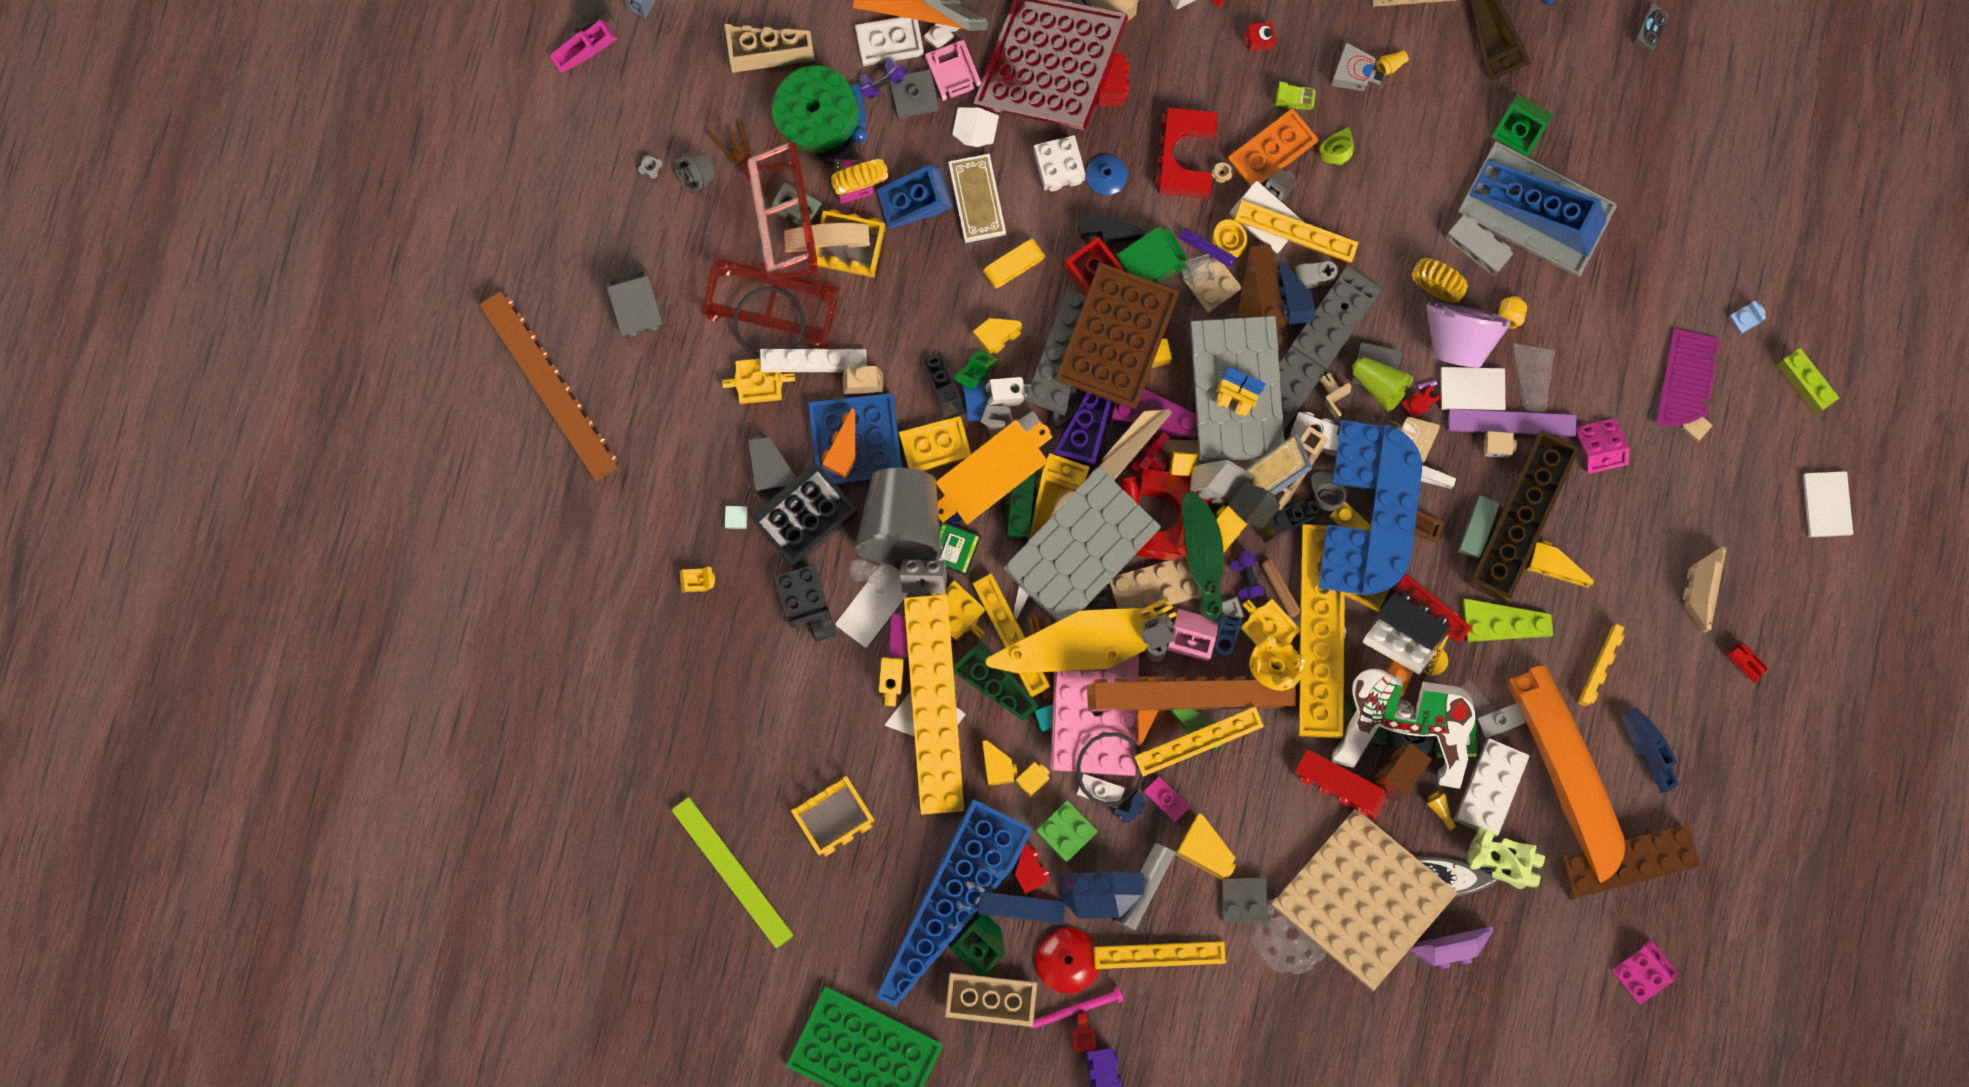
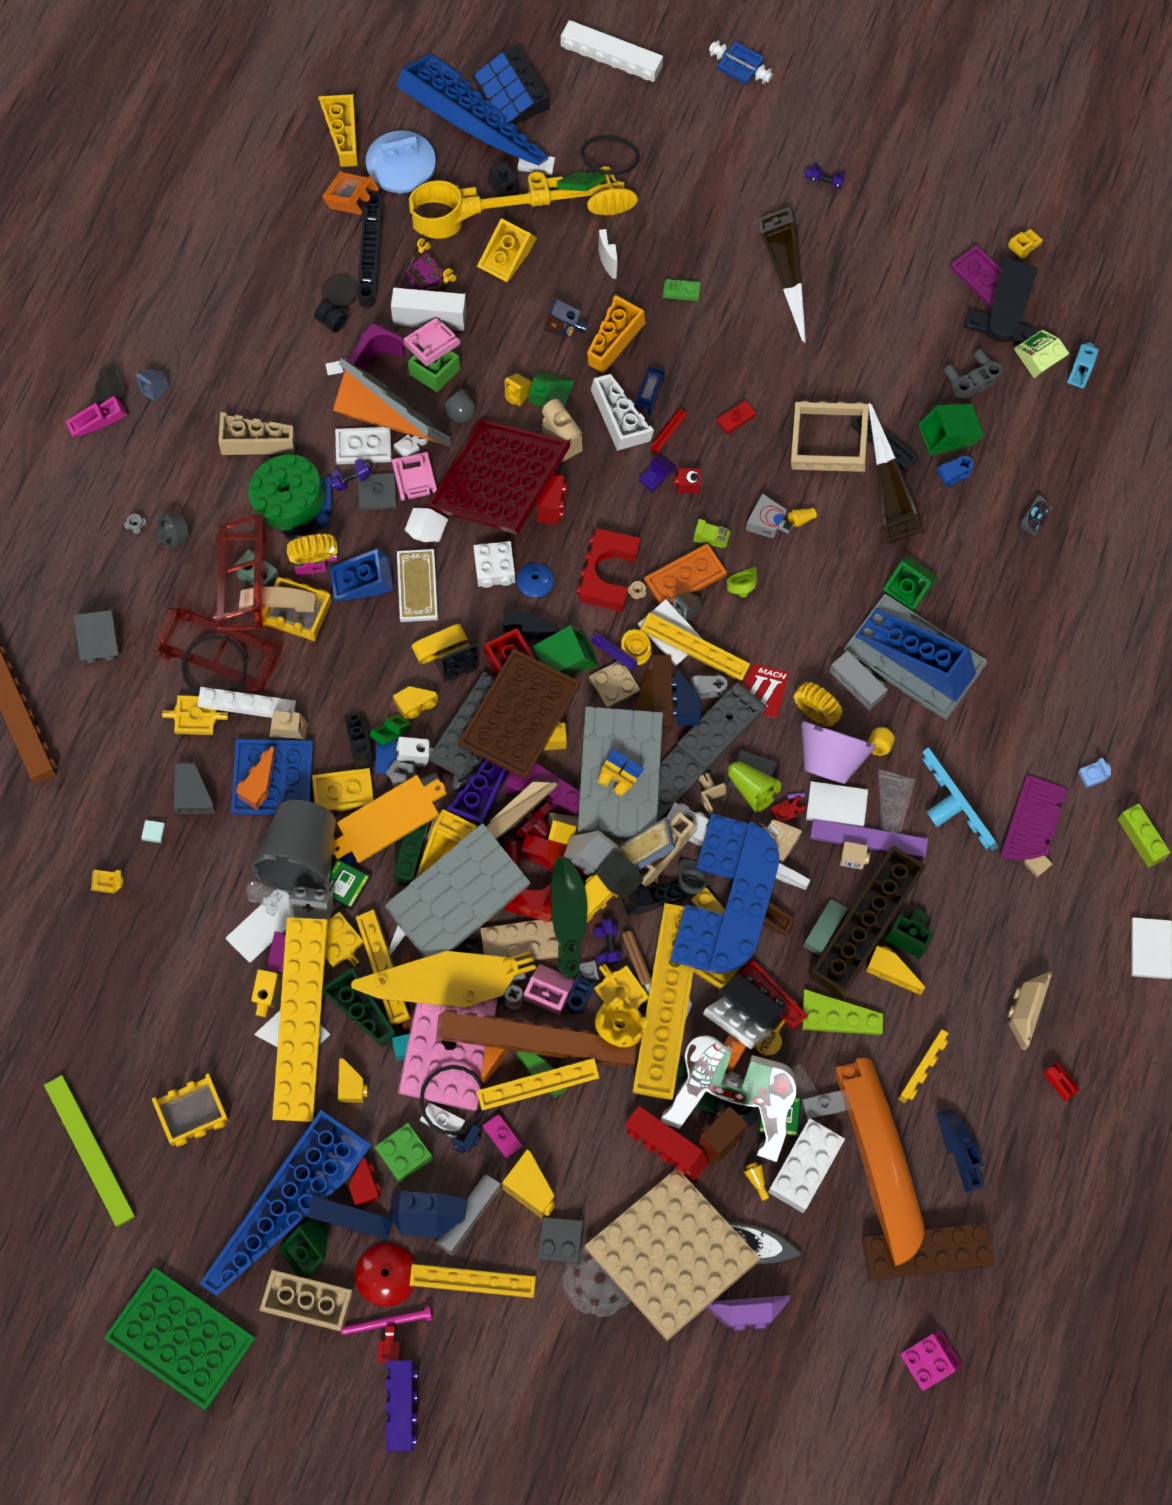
camera: 10 degrees right, 10 degrees down
(739, 152) = (214, 519): reddish brown plant -> none
(803, 600) = (199, 911): black plate -> none
(804, 515) = (213, 836): black slope -> none
(1033, 778) = (381, 1100): yellow brick -> none
(1037, 280) = (457, 661): none -> black slope
(1158, 631) = (515, 978): dark grey brick -> none
(1198, 270) = (602, 668): clear window -> none
(1223, 31) = (656, 473): none -> dark purple slope
(1380, 264) = (768, 686): none -> red sticker
(1518, 864) = (821, 1240): yellowish green hips -> none
(1570, 523) = (911, 933): none -> dark green brick
(1600, 373) = (954, 803): none -> medium azure plate
(1603, 445) = (949, 869): dark pink bracket -> none

